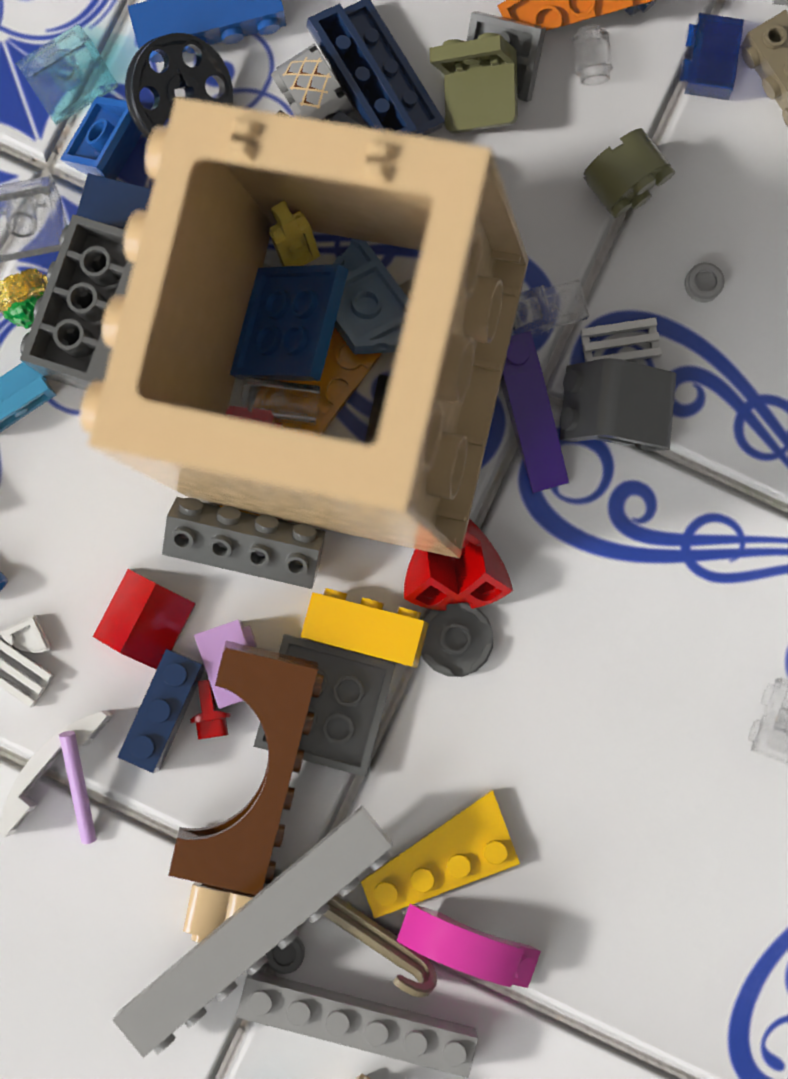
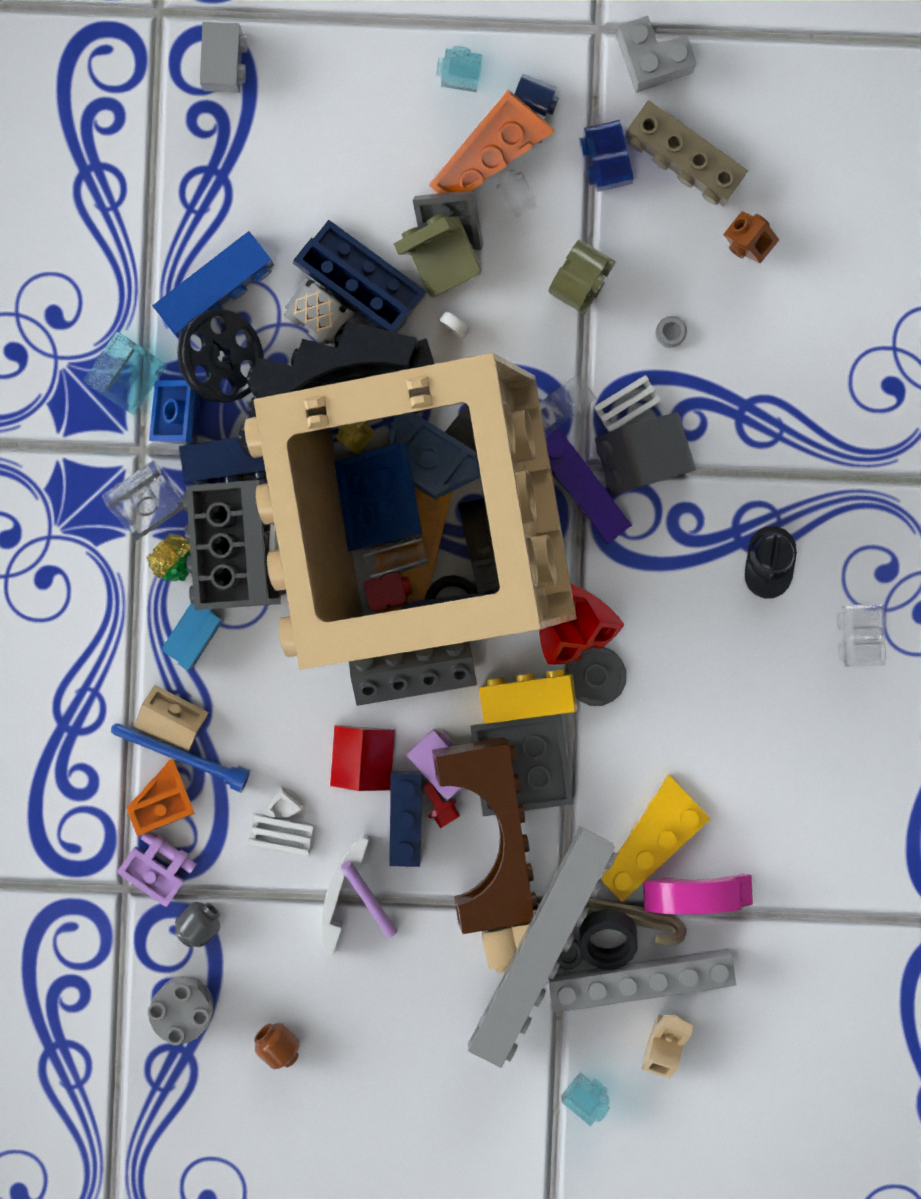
camera: 30 degrees left, 5 degrees up
(328, 977) = (608, 957): none -> black tyre
(712, 592) = (770, 562): none -> black piece

